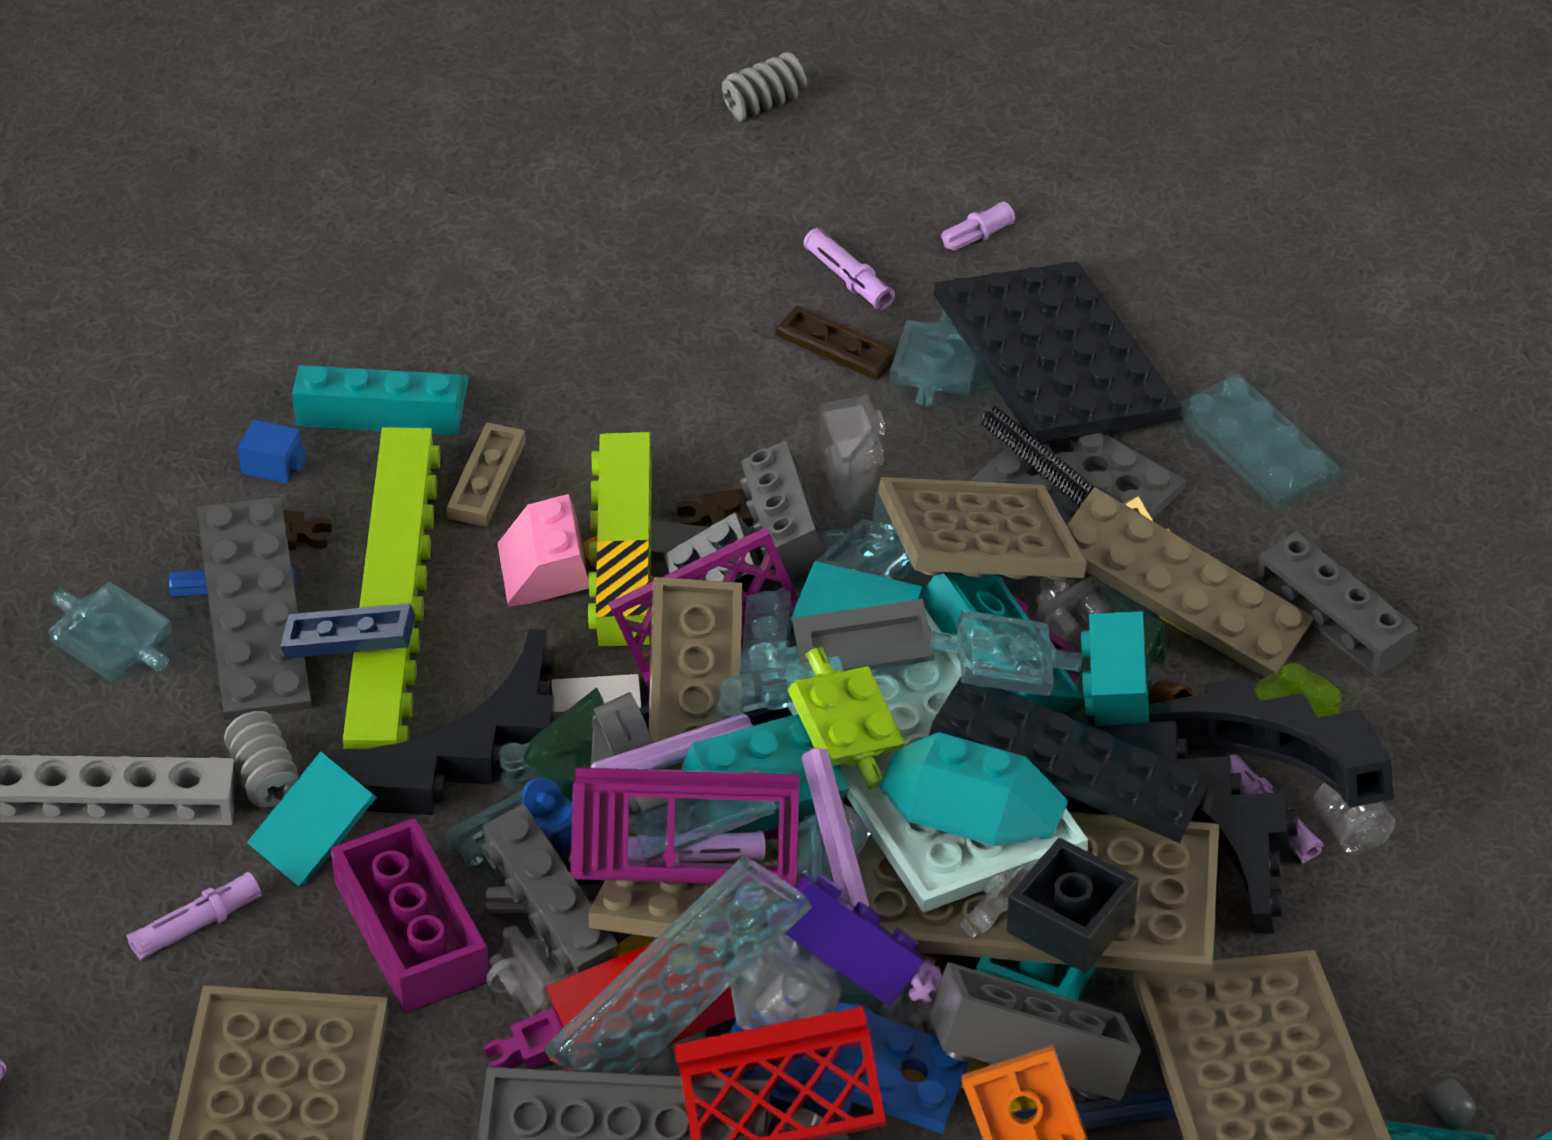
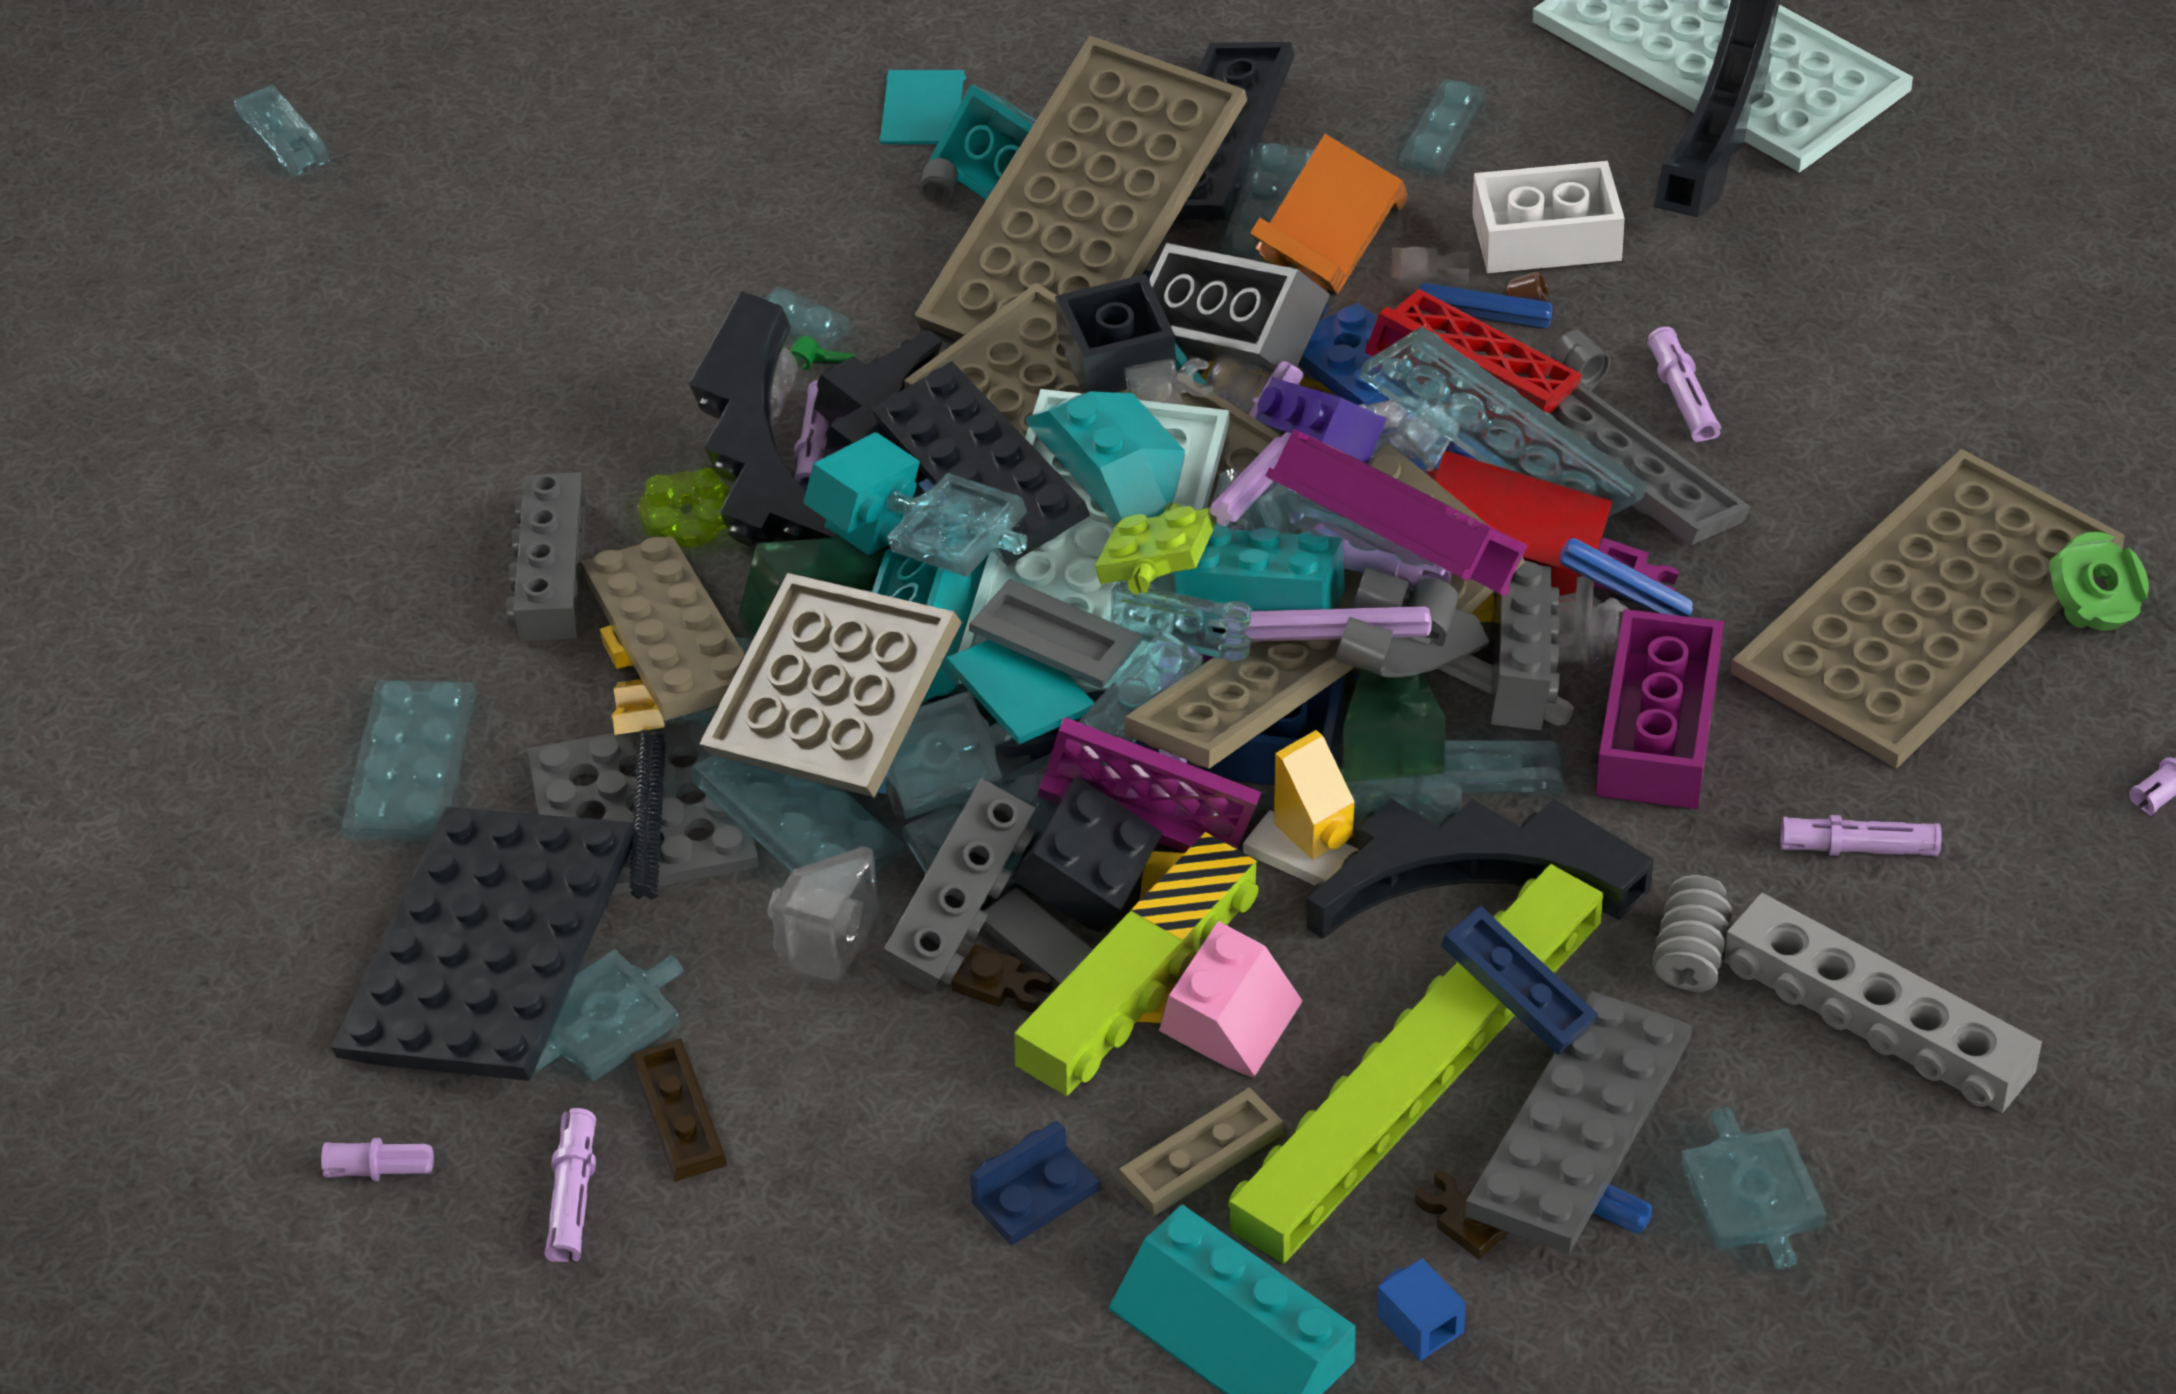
camera: 140 degrees left, 0 degrees up
(311, 820) = (1684, 844): teal piece -> none
(514, 1001) = (1623, 579): none -> blue axle
(550, 811) = (1468, 697): blue hips -> none
(574, 407) = (1031, 1183): none -> dark blue bracket
(602, 669) = (1312, 797): none -> yellow slope
(1362, 874) = (809, 350): none -> green hand
(1406, 909) = (810, 318): none -> clear light blue plate

